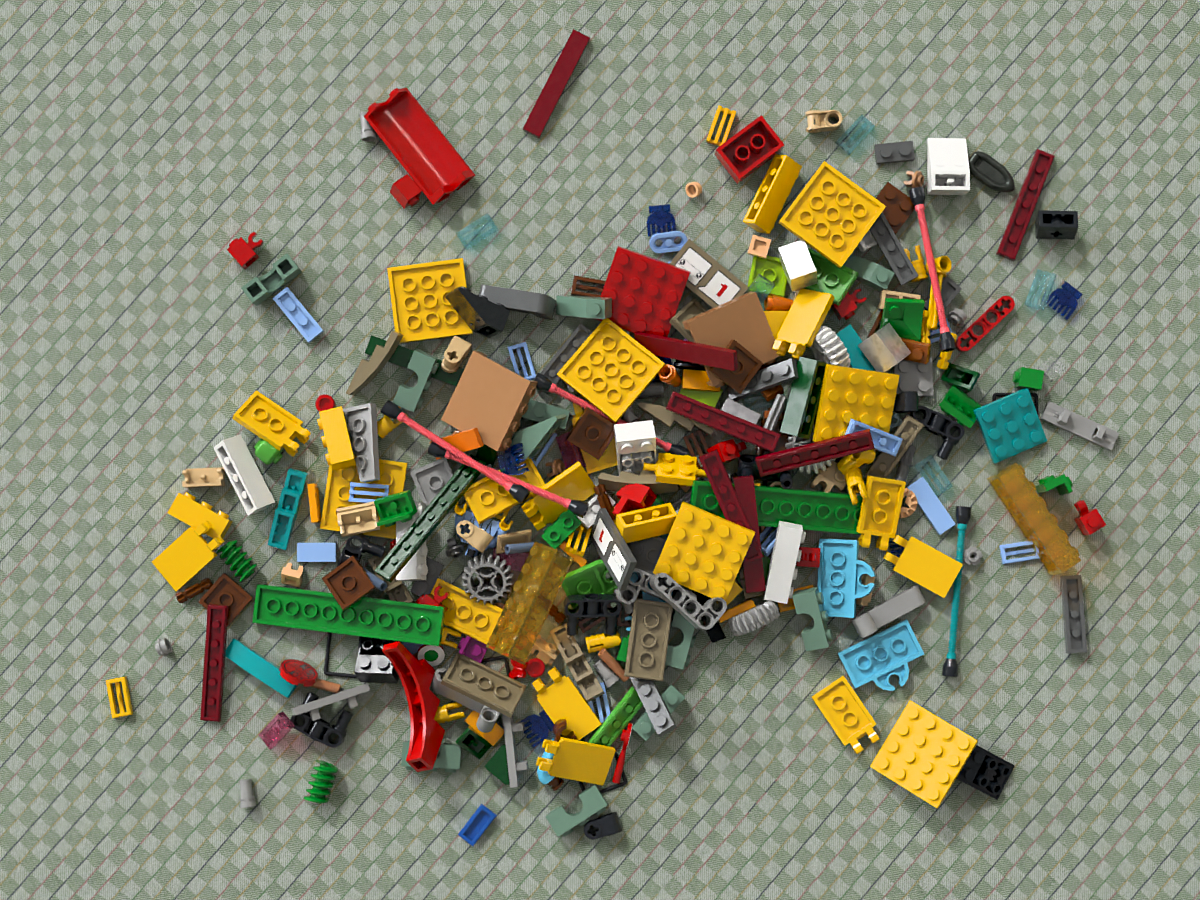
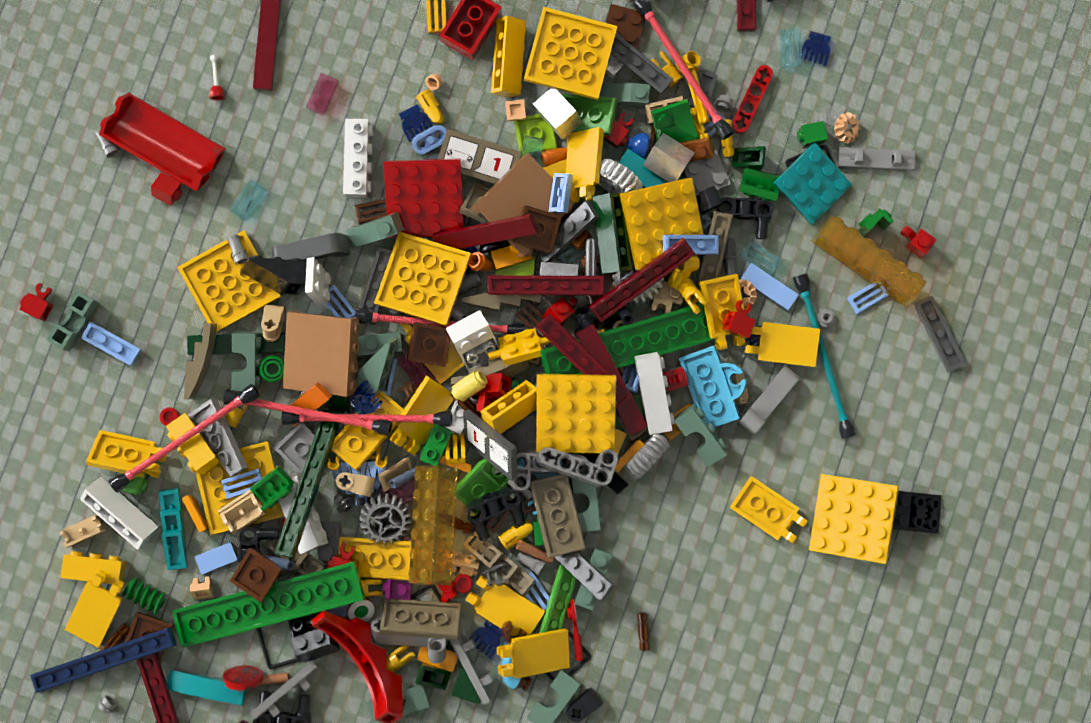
camera: 20 degrees left, 0 degrees up
(176, 604) = (103, 660): none -> dark blue tile
(258, 446) = (121, 480): none -> coral hose
(438, 397) = (272, 369): none -> green brick
(449, 278) = (239, 254): none -> light grey pin
(487, 119) = (216, 92): none -> red hinge
(511, 335) = (317, 283): none -> white plate
(570, 666) = (494, 570): none -> dark grey piece
(585, 160) = (322, 94): none -> clear pink plate
(593, 232) = (356, 158): none -> white brick
(615, 487) = (469, 385): none -> light yellow head
(681, 211) = (430, 106): none -> yellow hinge
(685, 779) = (643, 631): none -> reddish brown axle
(773, 342) = (563, 192): none -> light blue tile
(862, 324) = (639, 144): none -> blue brick
(882, 656) = (780, 444): medium azure plate -> none
(889, 528) = (738, 322): none -> red brick
(1059, 382) = (842, 124): none -> light nougat gear

